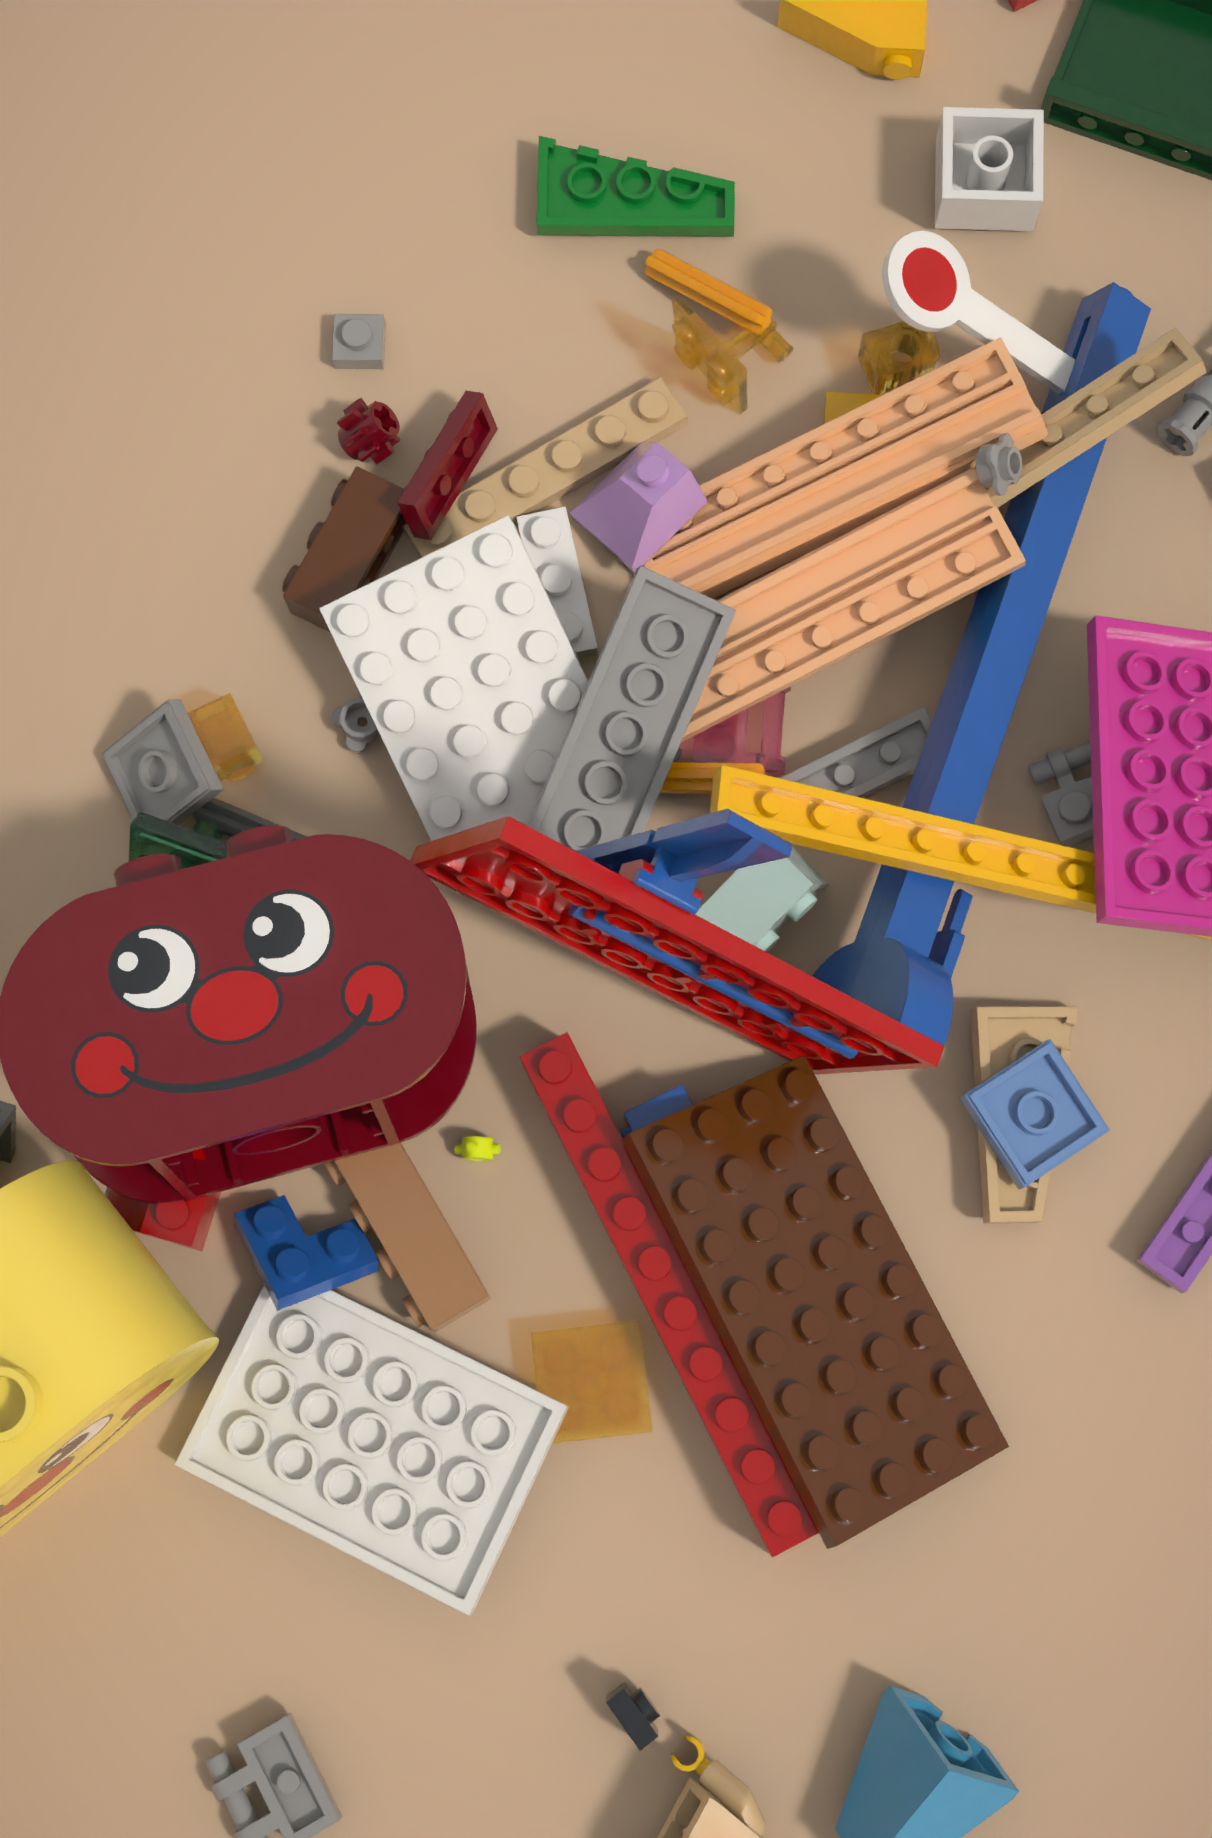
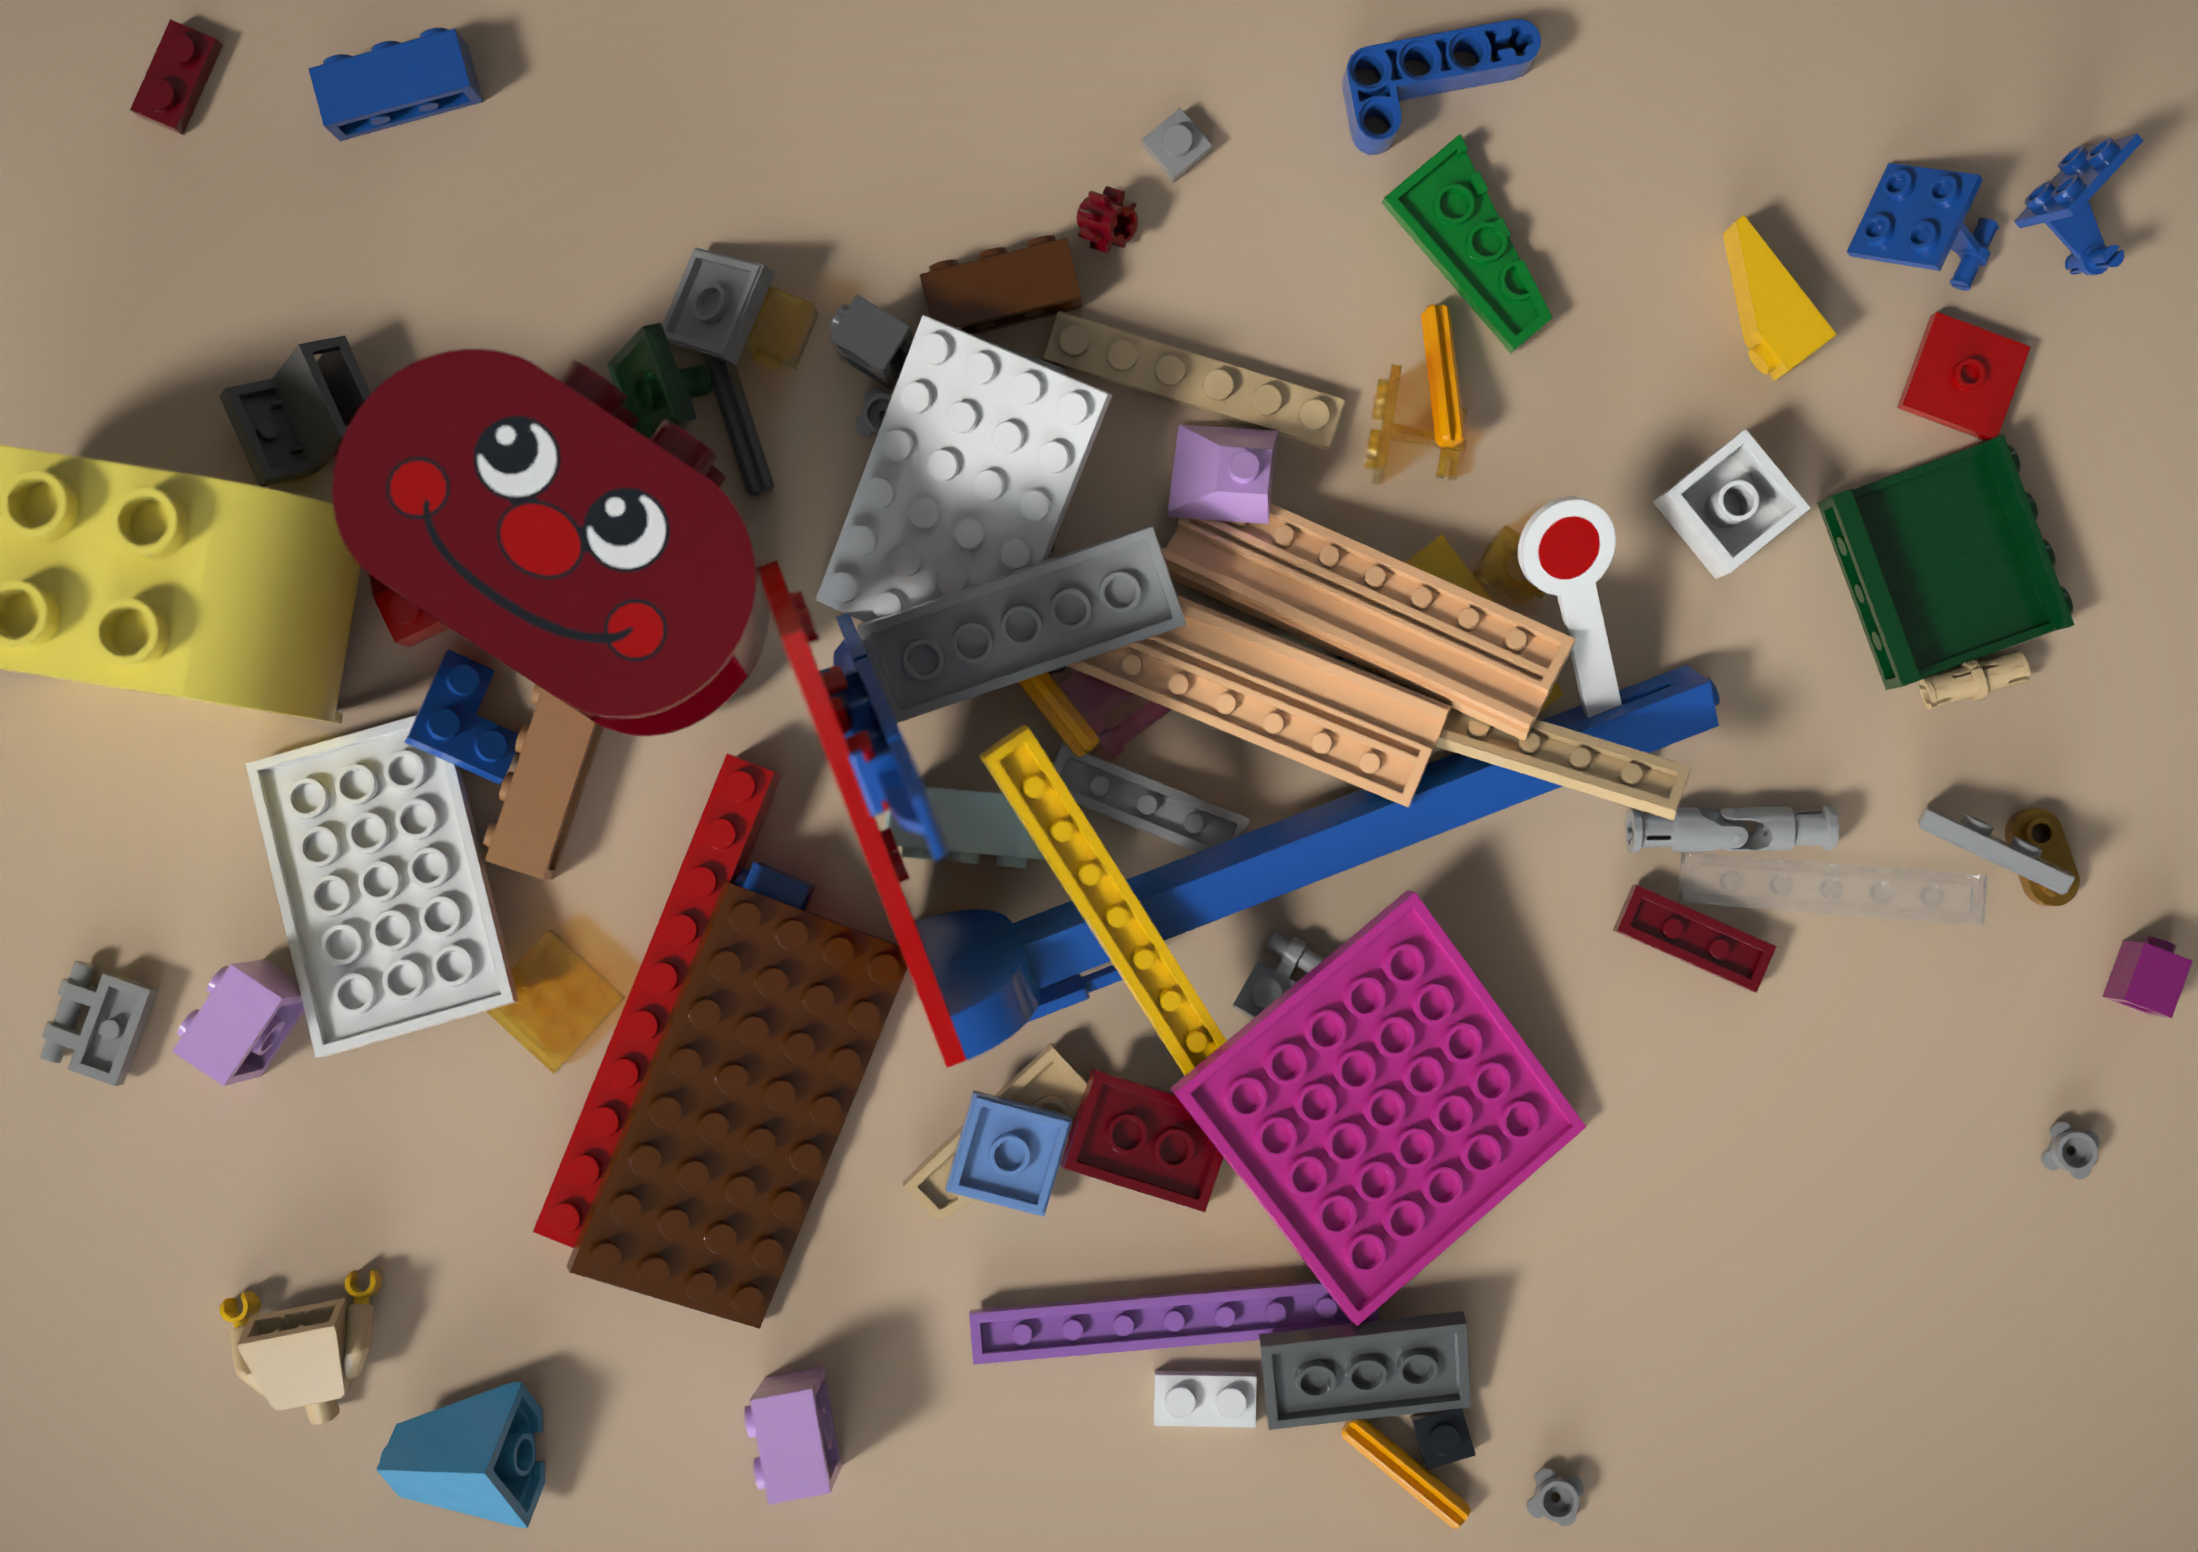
camera: 45 degrees right, 10 degrees up
(300, 672) = (871, 340): none -> dark grey brick
(383, 1653) = (241, 1021): none -> lavender brick
(447, 465) = (1128, 304): dark red plate -> none
(477, 1148) = (646, 777): neon yellow piece -> none
(500, 63) = (1443, 73): none -> blue beam
(554, 556) = (1117, 462): white plate -> none
(635, 1714) = (354, 1224): black plate -> none
(999, 464) = (1464, 725): light grey plate -> none
(1115, 997) = (1141, 1142): none -> dark red plate
(1128, 1484) = (794, 1436): none -> lavender brick

